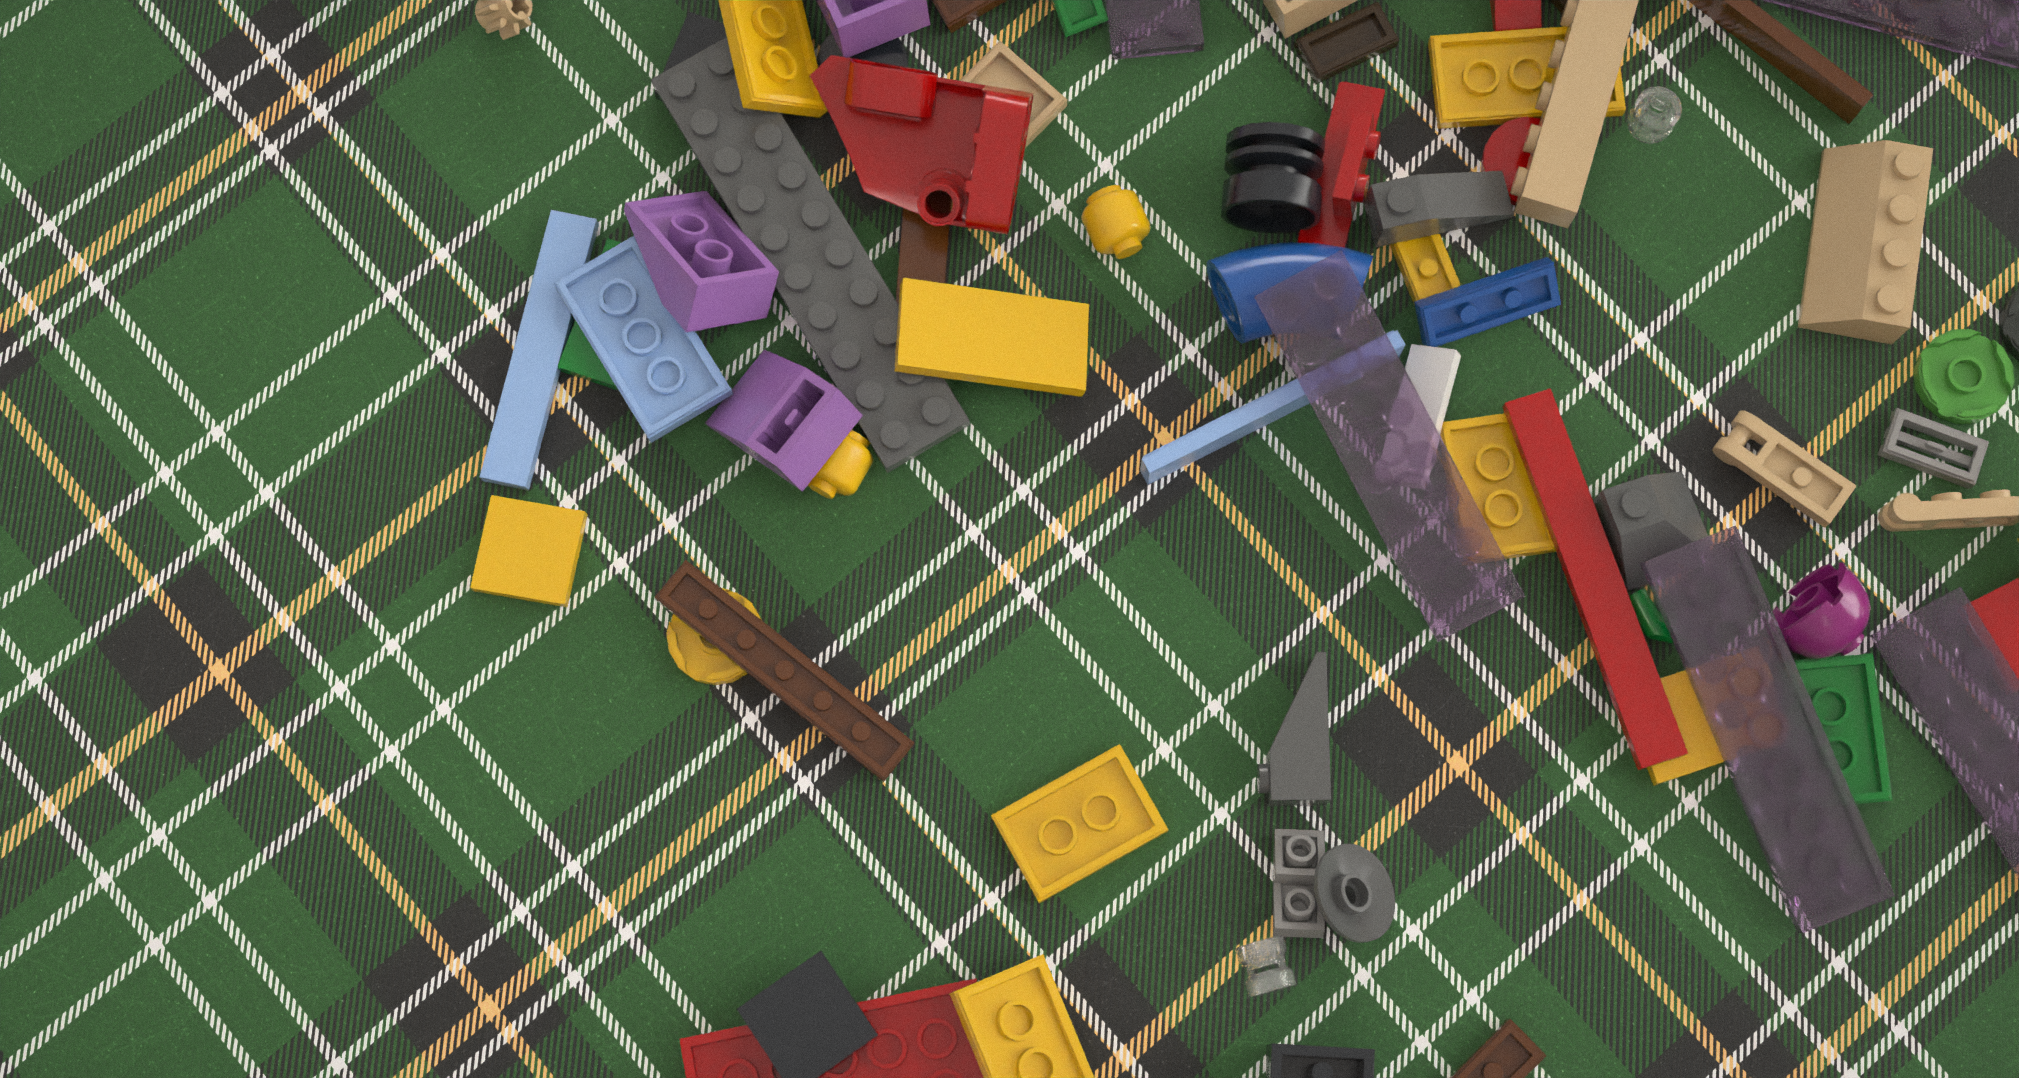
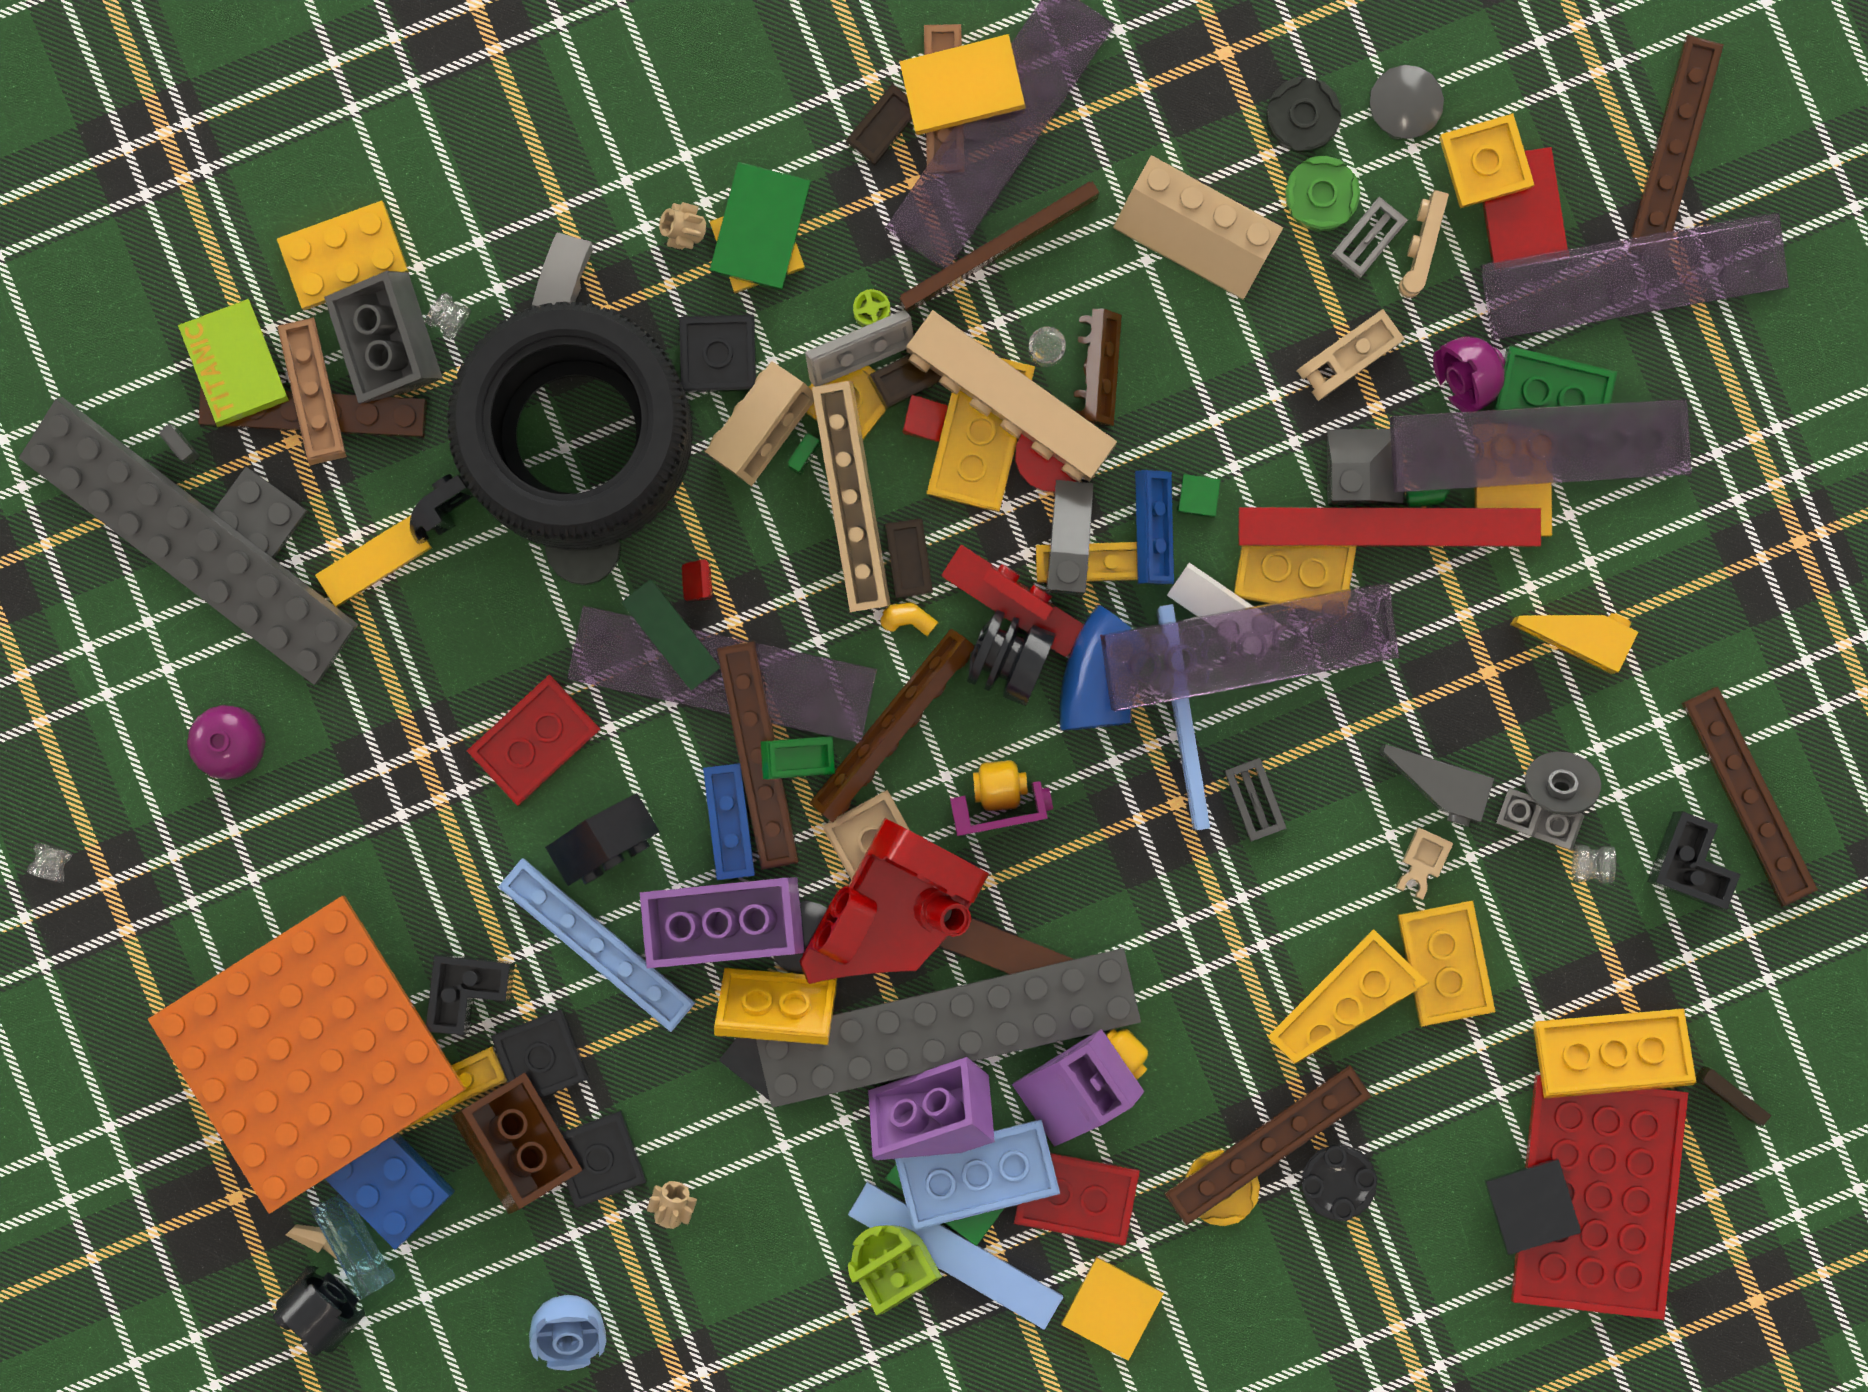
camera: 70 degrees left, 10 degrees up
(504, 272) = (891, 1265): none -> lime slope
(650, 486) = (1091, 1204): none -> red tile
(765, 775) = (1339, 1182): none -> black dish
(992, 337) = (1064, 910): yellow tile -> none
(1003, 715) = (1353, 993): none -> yellow wing
(1060, 185) = (962, 821): none -> magenta panel
(1126, 74) = (892, 724): none -> reddish brown plate
(1170, 553) = (1265, 829): none -> dark grey tile
(1204, 752) = (1426, 857): none -> tan plate
(1281, 59) = (906, 614): none -> yellow arm
(1544, 346) = (1199, 495): none -> green tile
(1548, 865) = (1591, 638): none -> yellow slope
(1655, 182) = (1100, 366): none -> reddish brown plate

